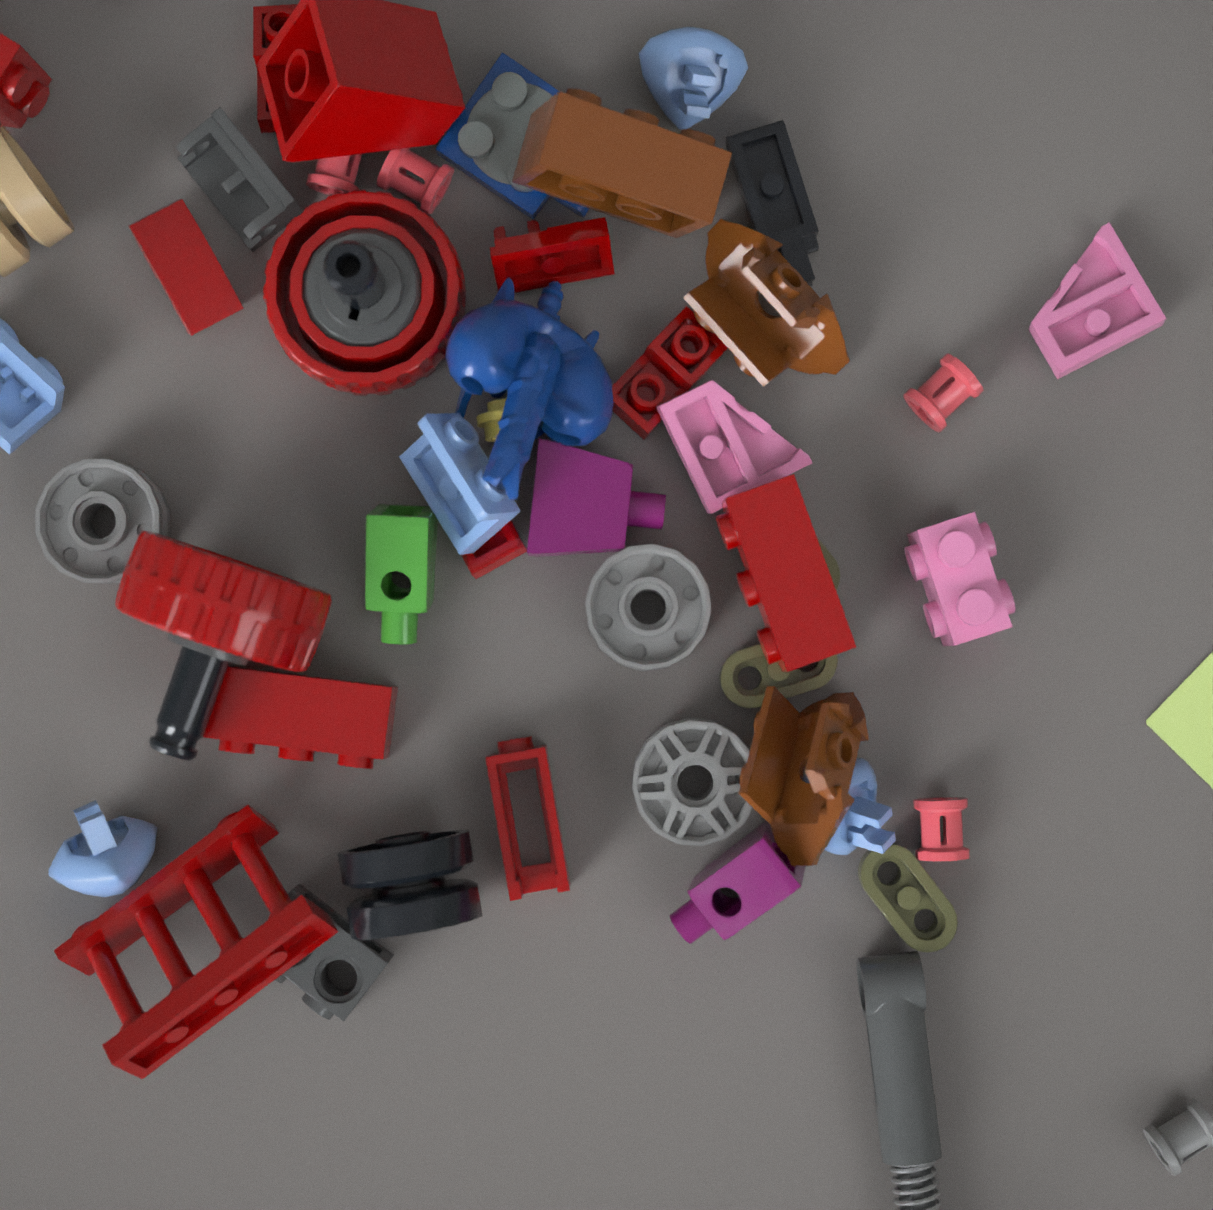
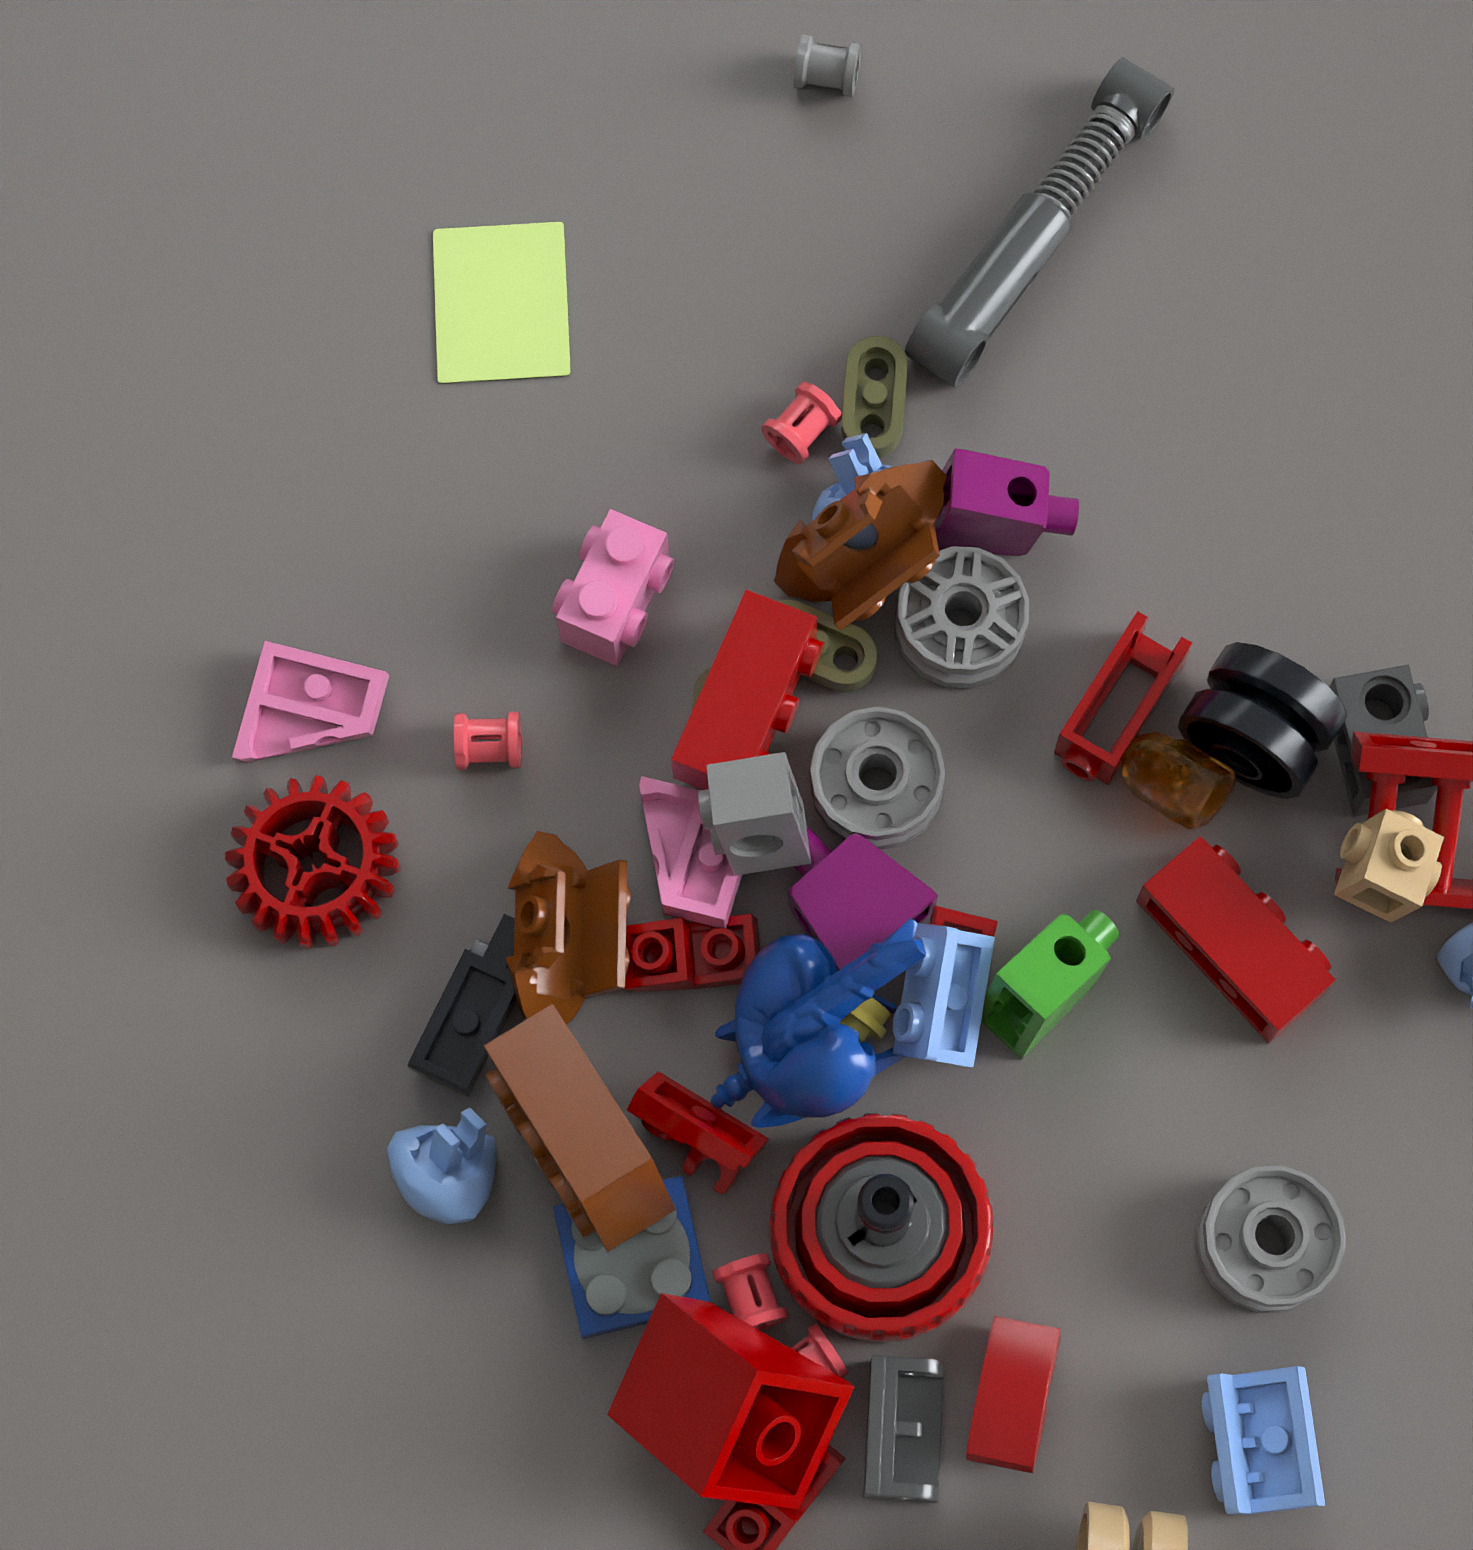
camera: 130 degrees left, 15 degrees down
(218, 616) = (1236, 1056): red wheel -> none
(226, 847) = (1389, 864): none -> tan brick
(439, 792) = (1177, 778): none -> clear orange rock
(697, 484) = (755, 814): none -> light grey brick
(989, 221) = (303, 887): none -> red gear

